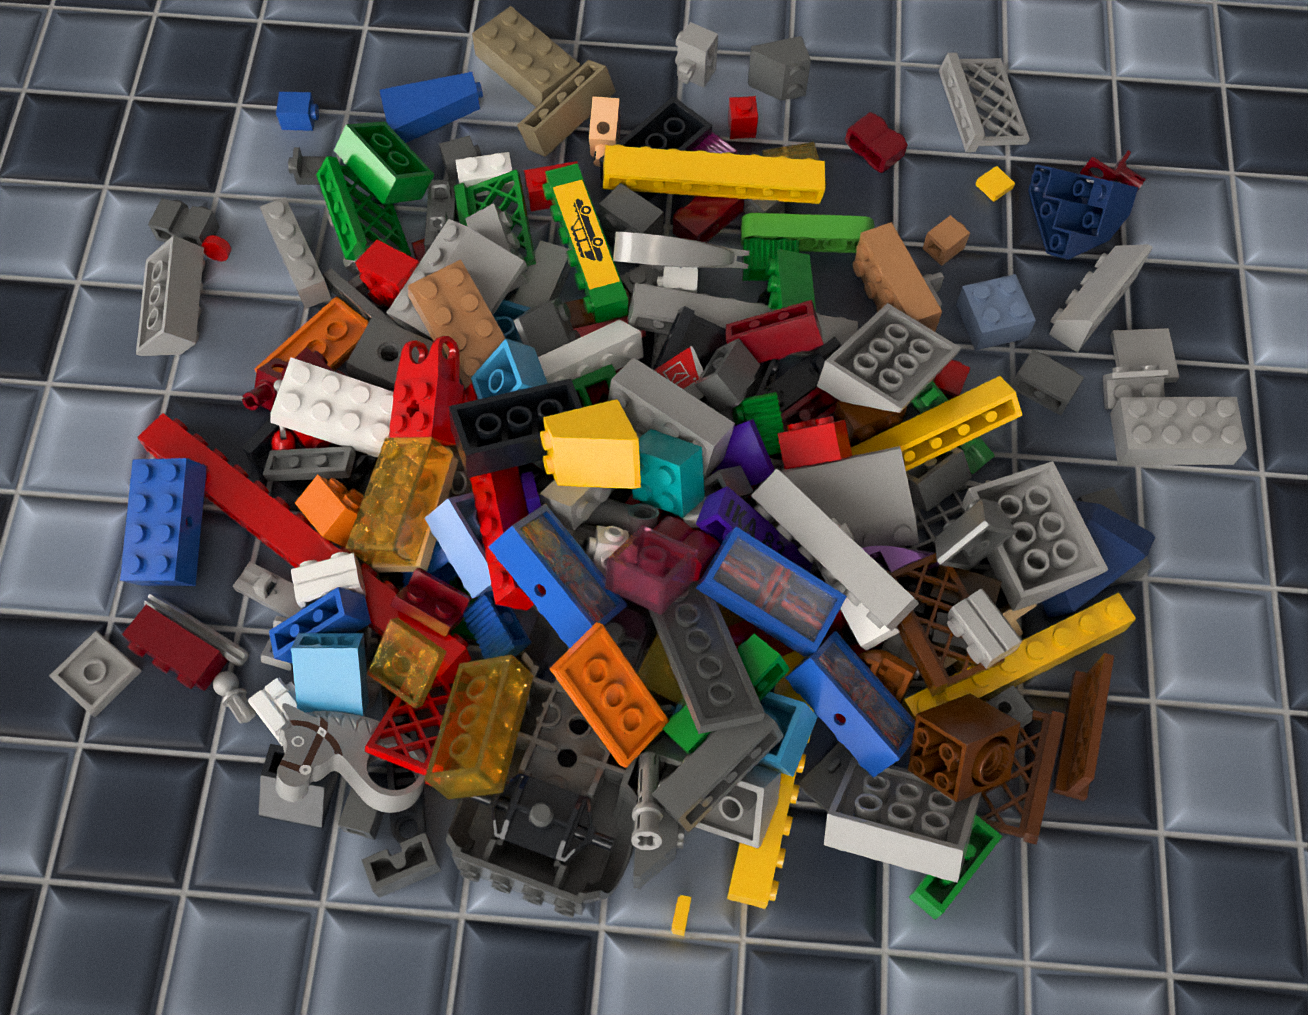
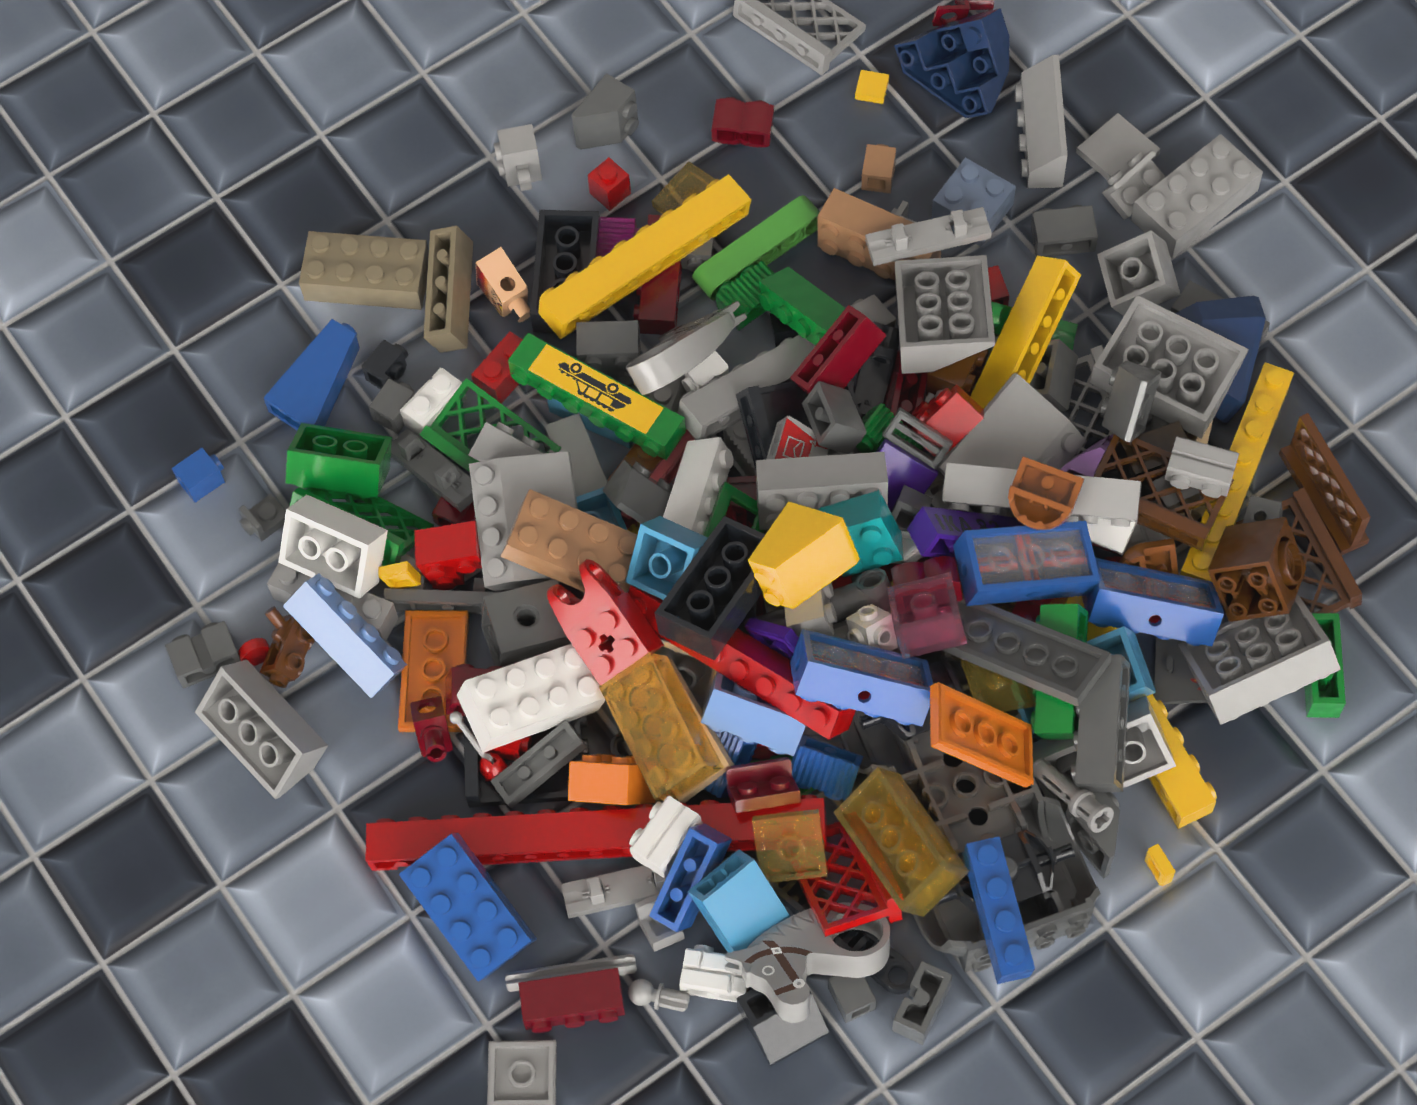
camera: 35 degrees left, 0 degrees up
(243, 255) = (287, 651): none -> reddish brown brick
(271, 276) = (345, 634): none -> brick
(316, 210) = (333, 544): none -> white brick
(344, 265) = (400, 575): none -> yellow tile
(481, 127) = (385, 363): none -> black brick
(495, 842) = (998, 910): none -> blue brick
(788, 432) = (924, 428): none -> dark grey tile
(825, 548) = (1043, 495): none -> dark orange slope
(929, 303) = (928, 236): none -> light grey hinge
(1078, 449) = (1138, 268): none -> light grey brick

